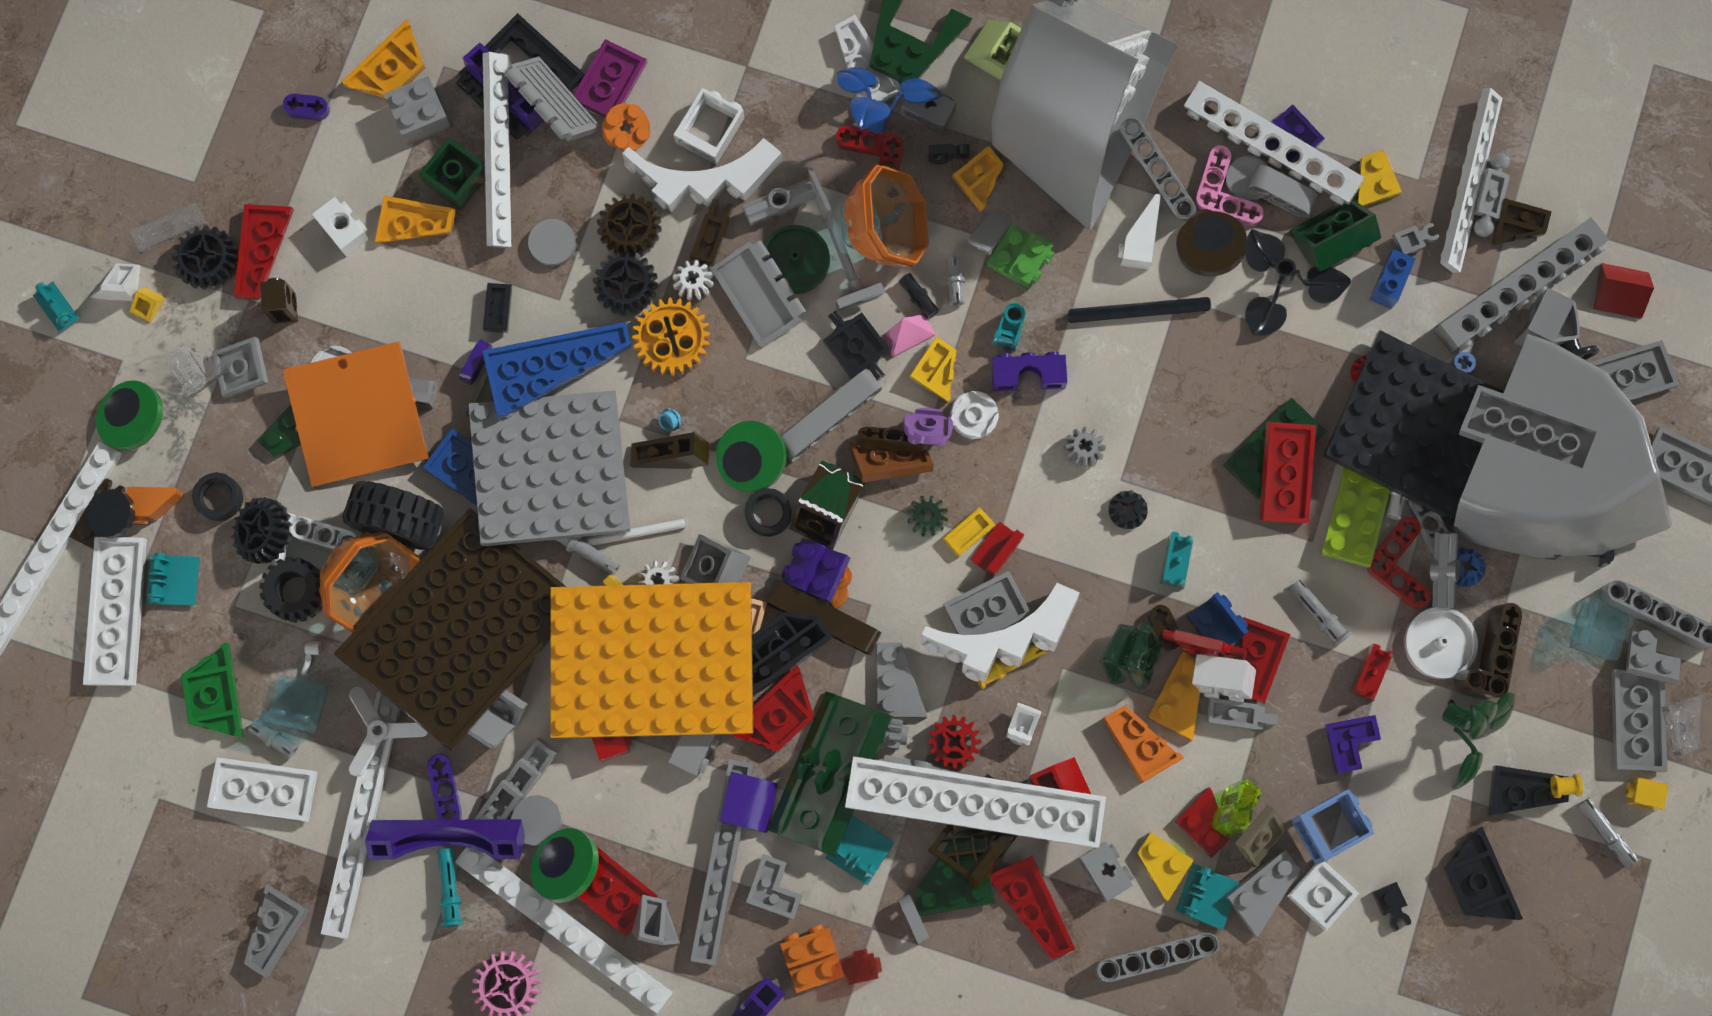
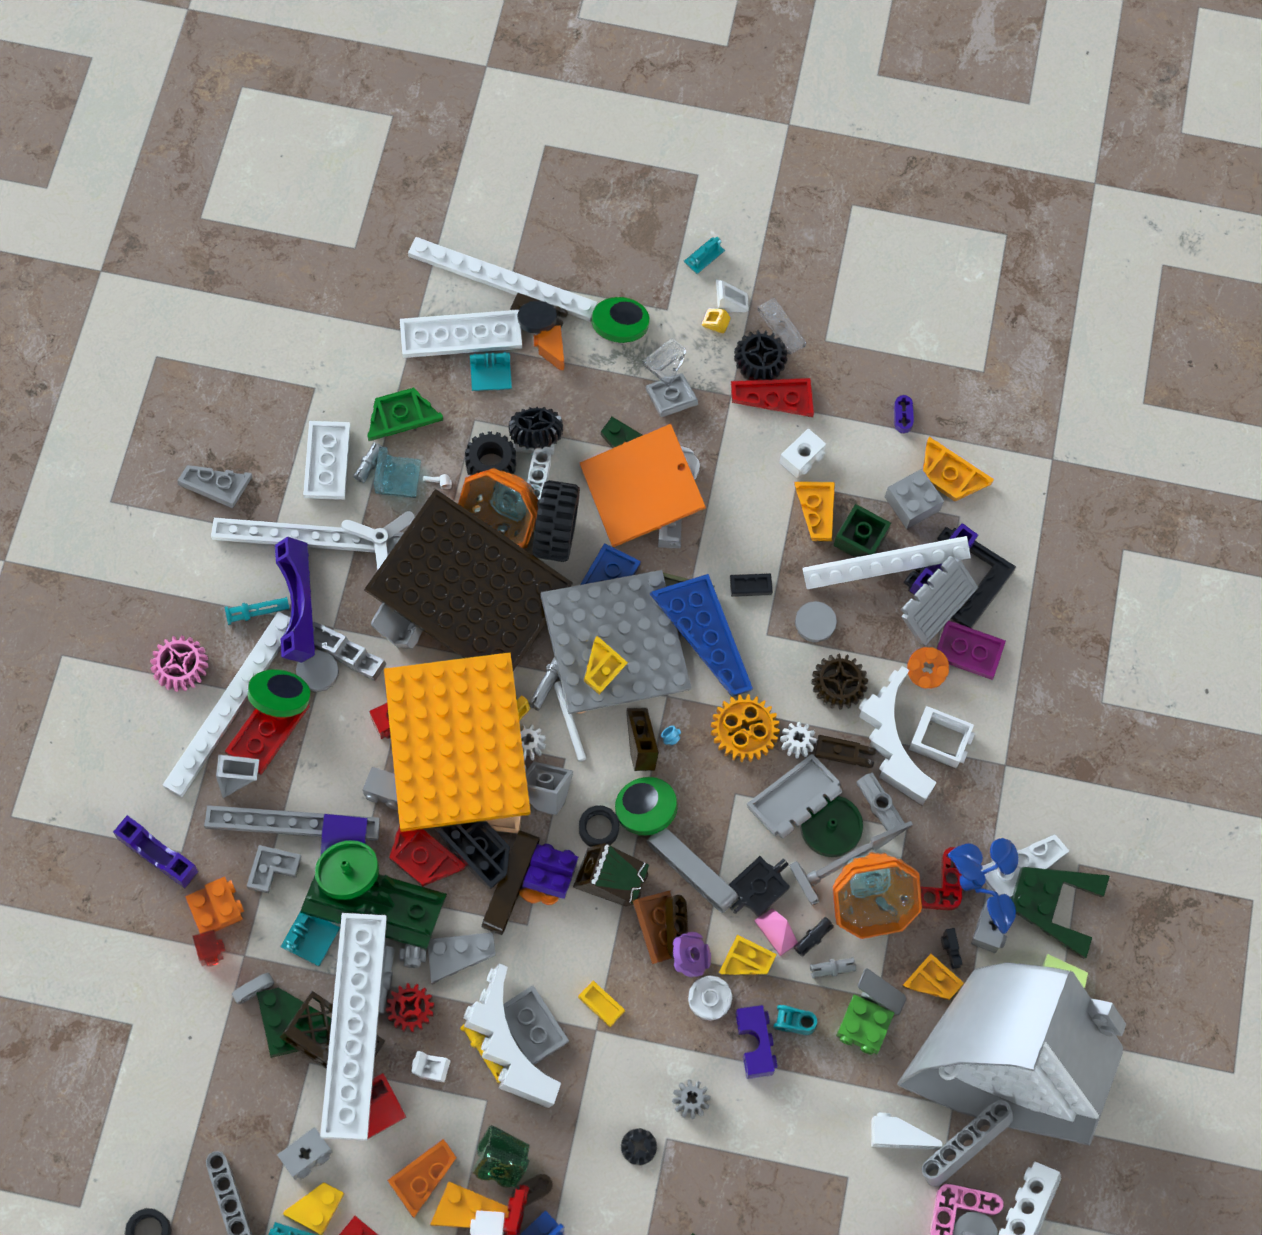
camera: 80 degrees right, 10 degrees down
(201, 487) = (562, 379): black tyre -> none
(278, 301) = (730, 413): dark brown brick -> none
(447, 770) = (353, 597): dark purple beam -> none
(474, 363) = (693, 570): dark purple beam -> none
(582, 482) = (602, 666): none -> yellow wing
(636, 284) = (804, 682): black gear -> none
(791, 799) = (347, 870): none -> green piece
(936, 513) = (603, 960): clear green gear -> none
(997, 548) = (588, 1030): red panel -> none
(1030, 898) = (278, 1089): red wing -> none
(1139, 309) = (830, 1140): black axle -> none
(1176, 560) = (595, 1195): teal hinge -> none
(1211, 243) = (903, 1201): dark brown piece -> none

